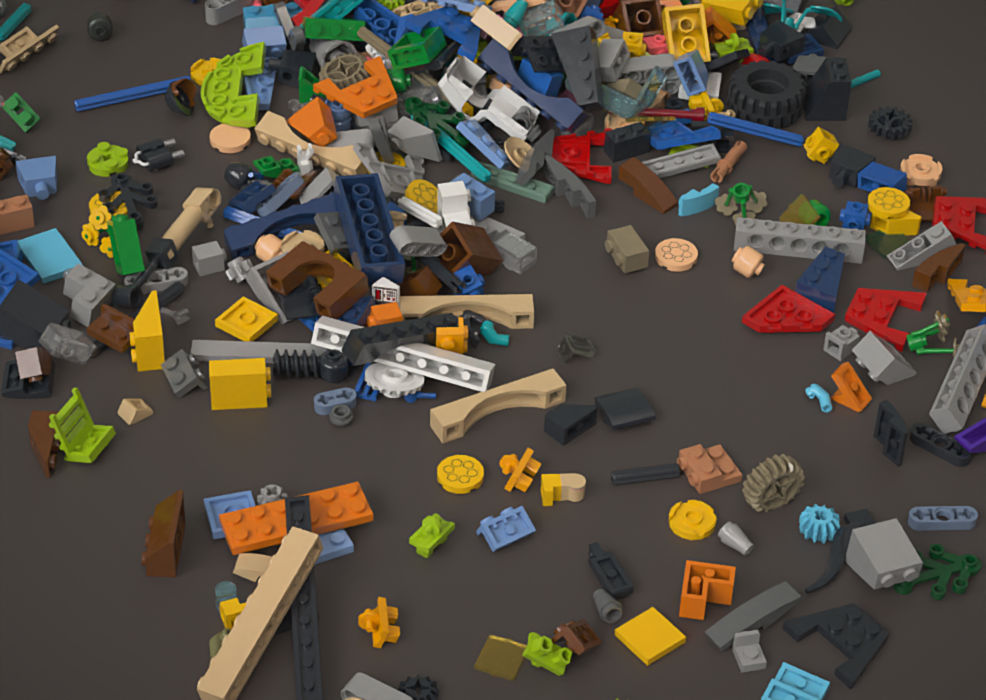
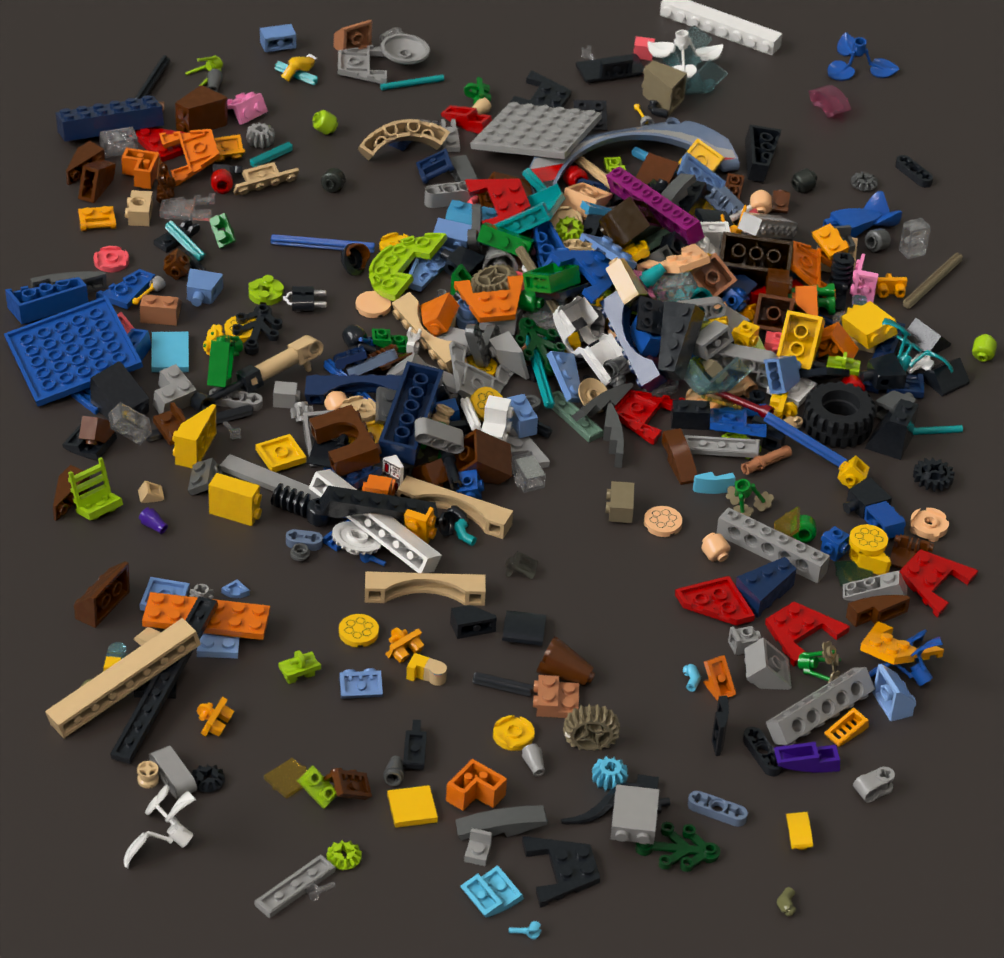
camera: 25 degrees right, 0 degrees up
(159, 438) = (151, 519): none -> dark purple cone
(300, 479) = (235, 590): none -> medium blue tile
(694, 427) = (565, 663): none -> reddish brown cone

